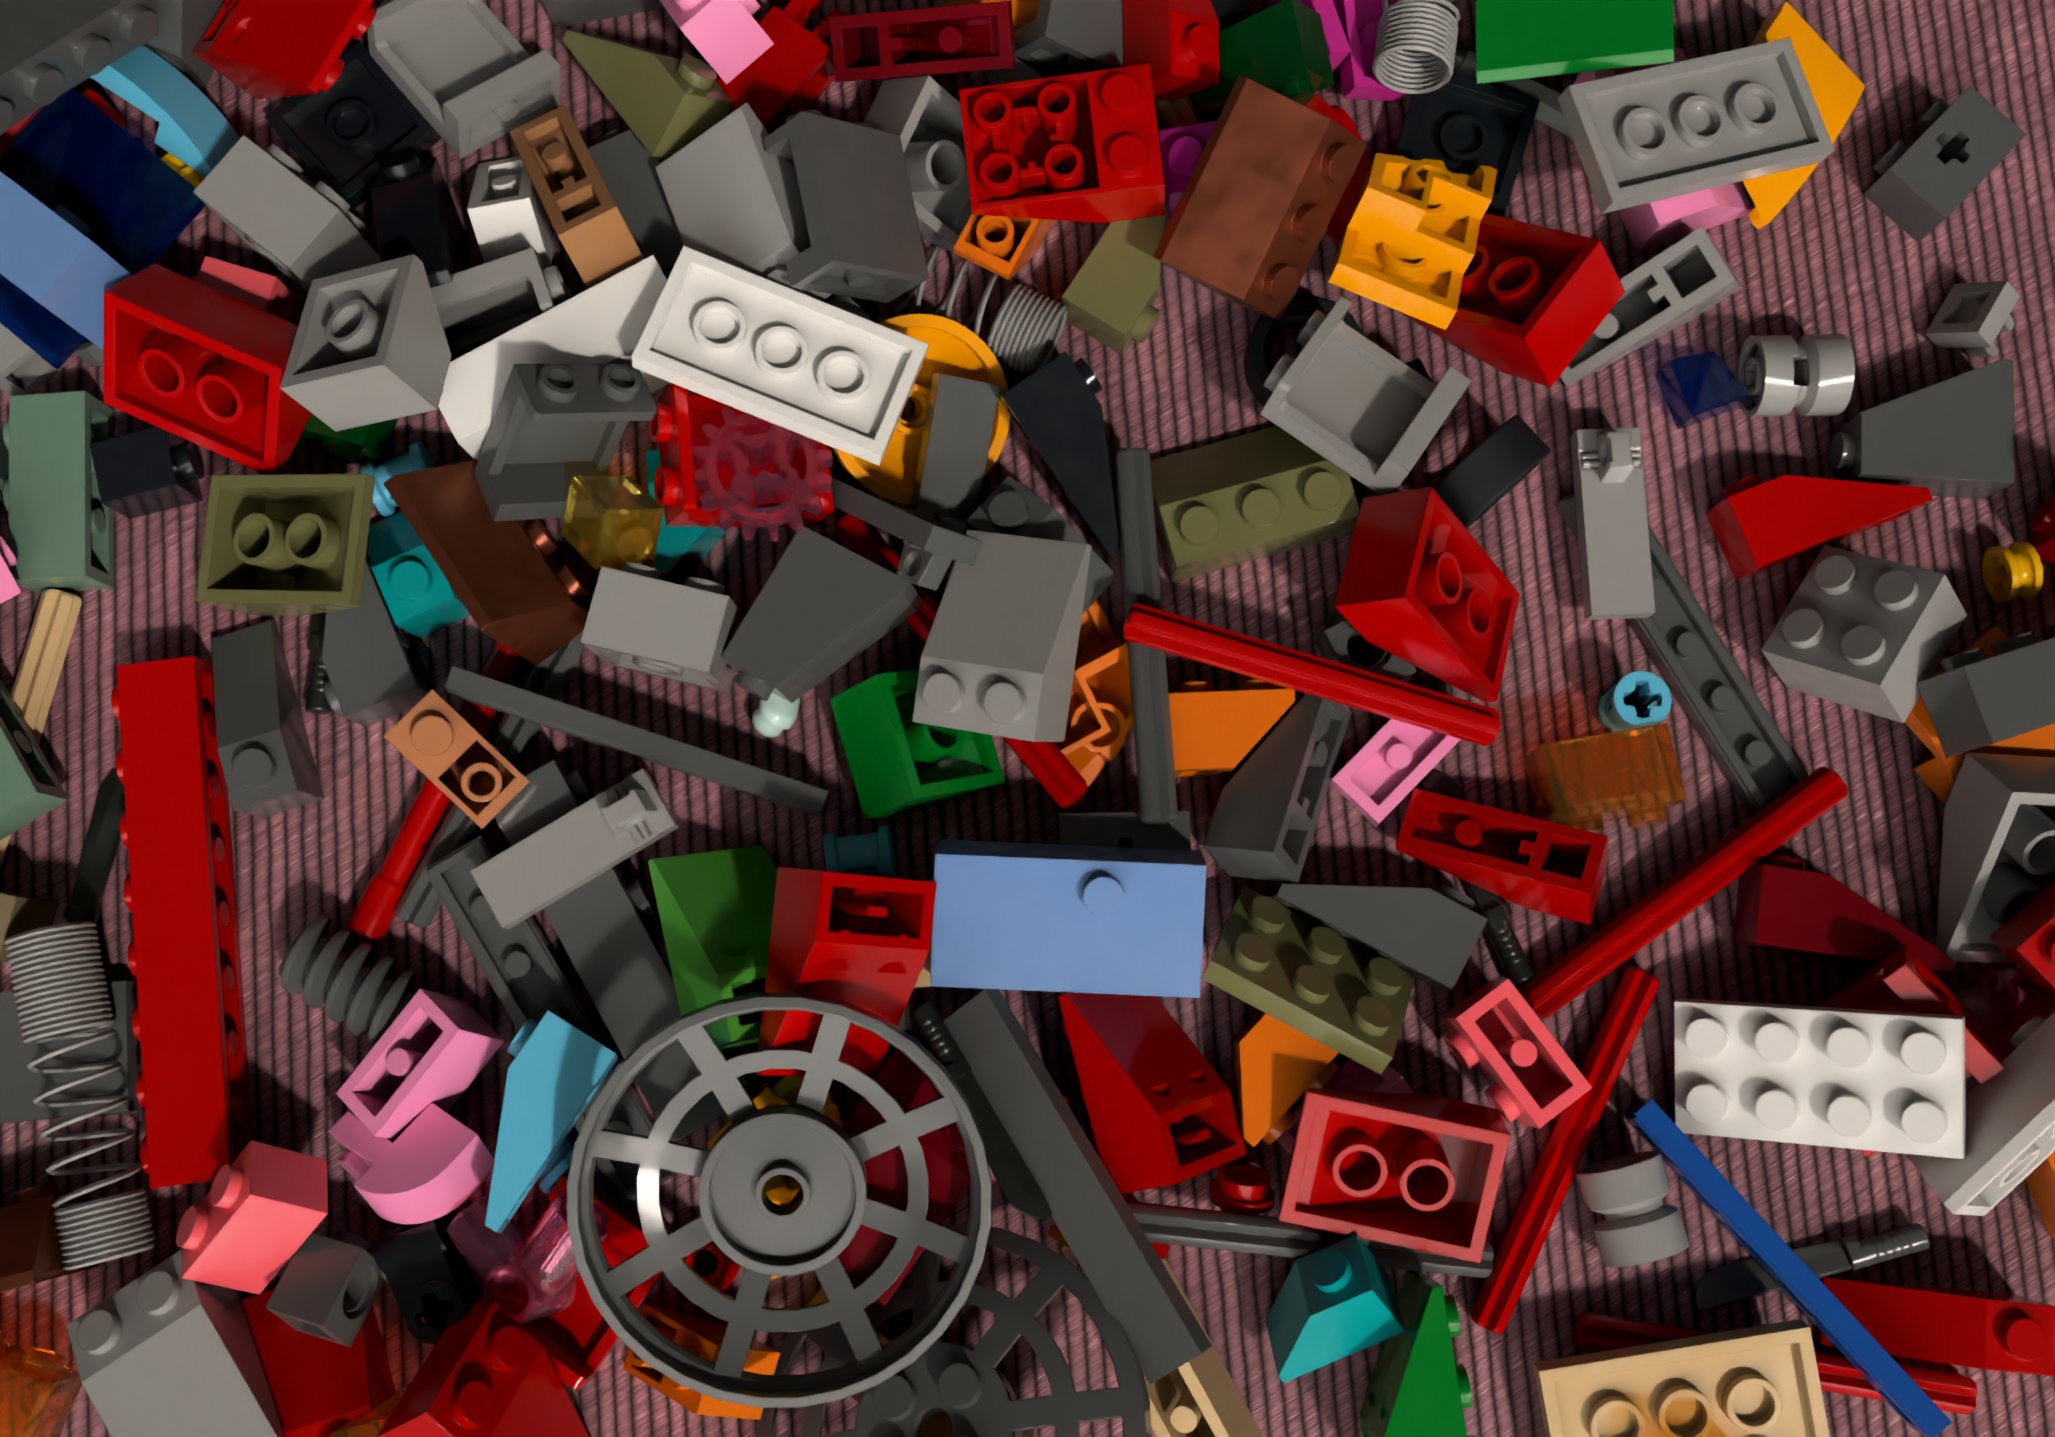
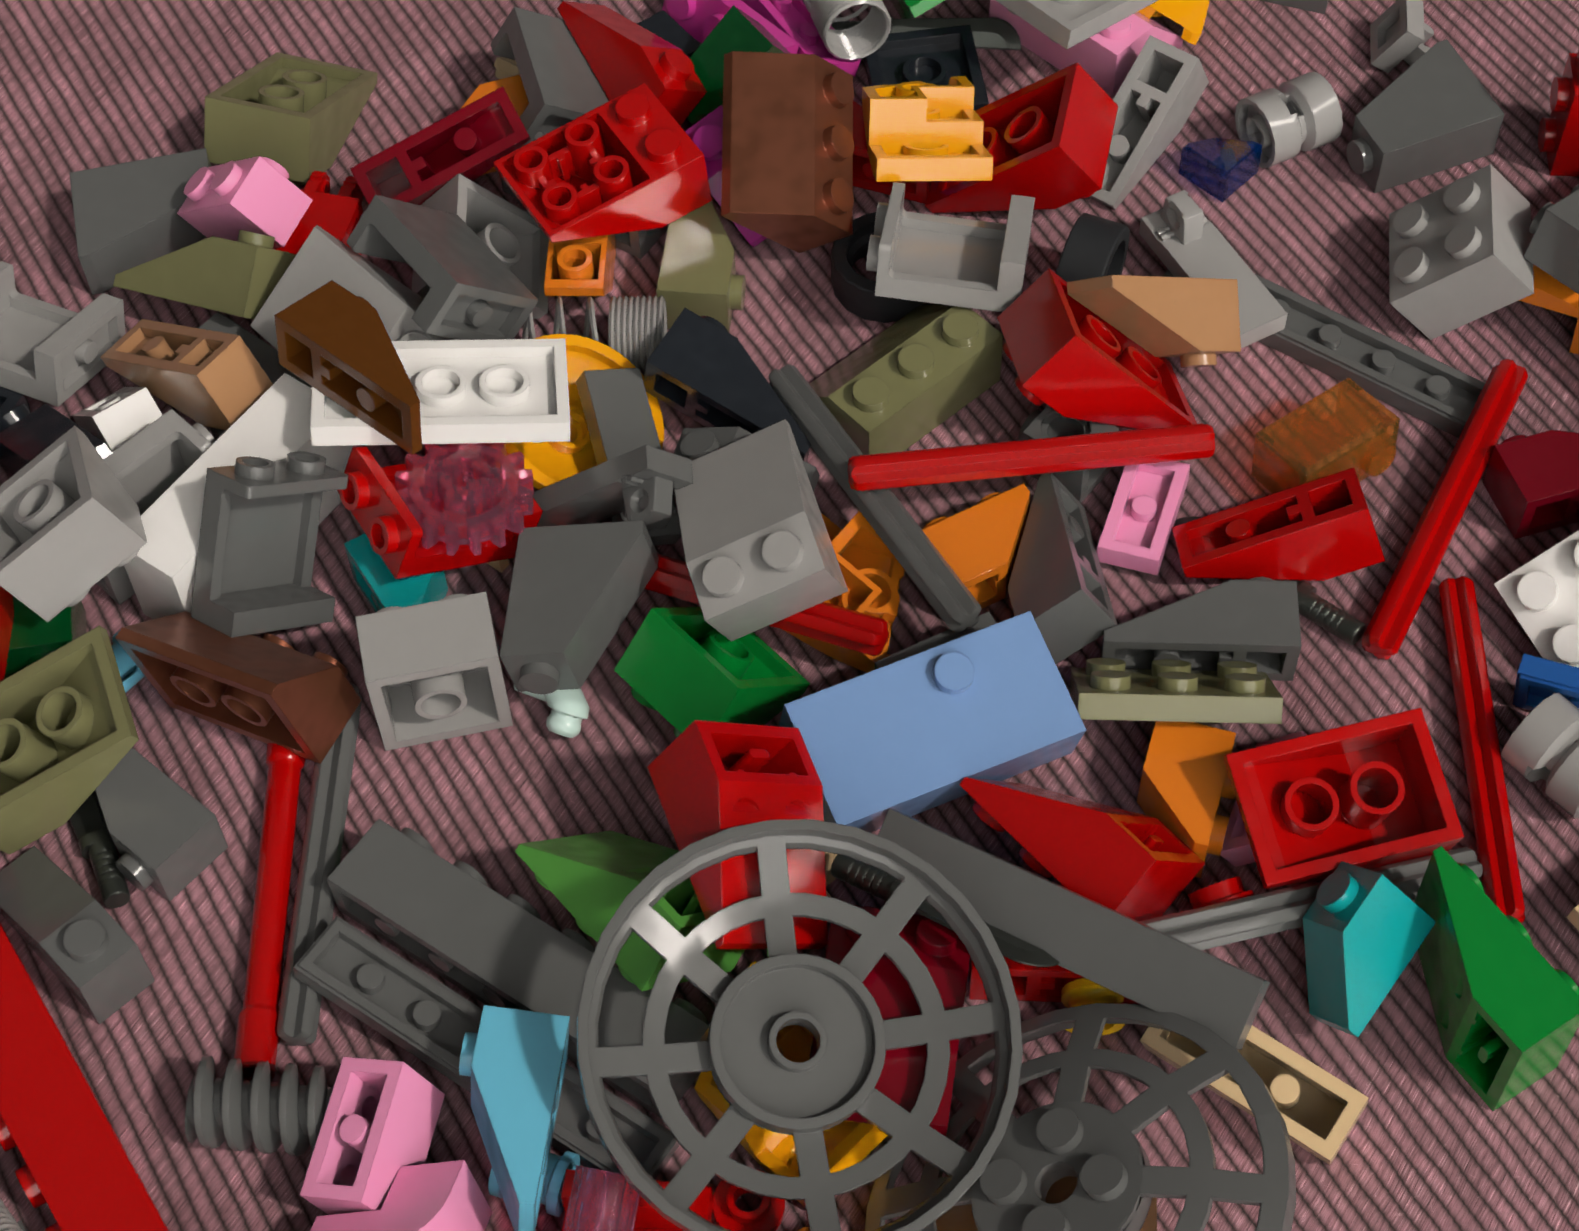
camera: 25 degrees left, 25 degrees down
(411, 579) = (180, 738): teal slope -> none
(456, 759) = (280, 848): nougat slope -> none
(574, 849) = (437, 876): light grey hinge -> none
(611, 521) = (329, 600): clear yellow brick -> none
(636, 742) = (450, 774): dark grey tile -> none
(694, 282) = (347, 355): none -> reddish brown slope
(1515, 1054) = (1383, 671): coral brick -> none
(1544, 572) = (1168, 314): none -> medium nougat slope
(1644, 691) = (1312, 375): medium azure bush -> none
(1799, 514) = (1350, 211): red slope -> none
(2012, 571) = (1546, 180): yellow bush -> none

